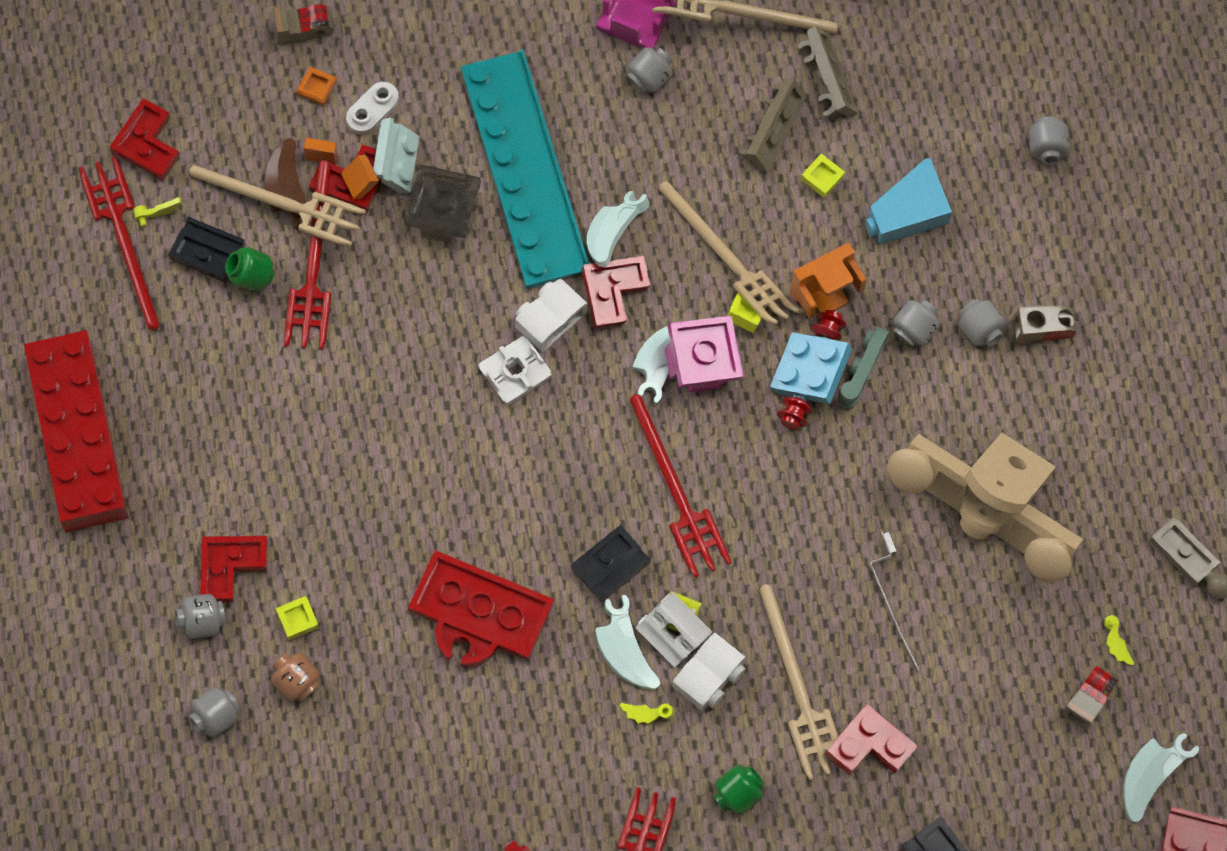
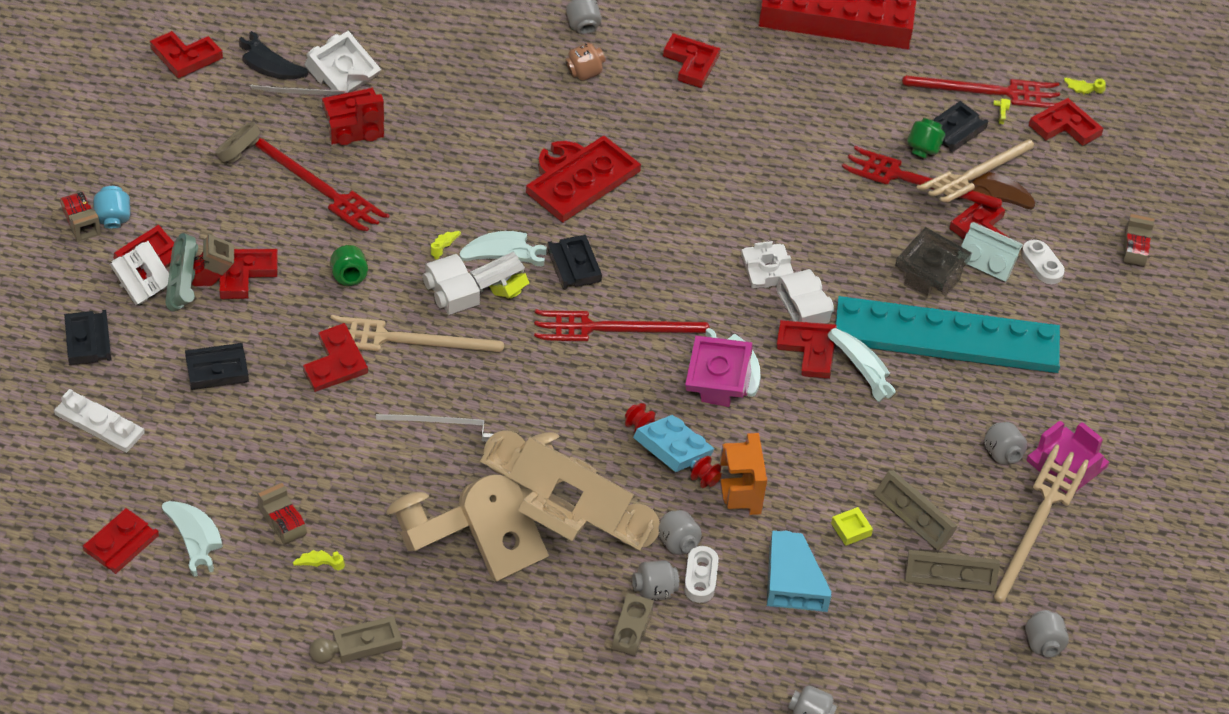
camera: 110 degrees right, 20 degrees down
(73, 139) = (1083, 87): none -> neon yellow piece
(200, 616) = (659, 28): light grey head -> none
(297, 618) = (630, 79): neon yellow plate -> none
(316, 86) = (1077, 236): orange tile -> none
(320, 150) = (1014, 212): orange tile -> none
(359, 177) = (976, 216): orange tile -> none
(743, 314) = (746, 421): neon yellow plate -> none
(746, 277) = (778, 437): tan piece -> none
(863, 367) = (656, 479): sand green plate -> none
(949, 286) = (700, 575): none -> white plate
(965, 419) = (600, 503): none -> tan piece

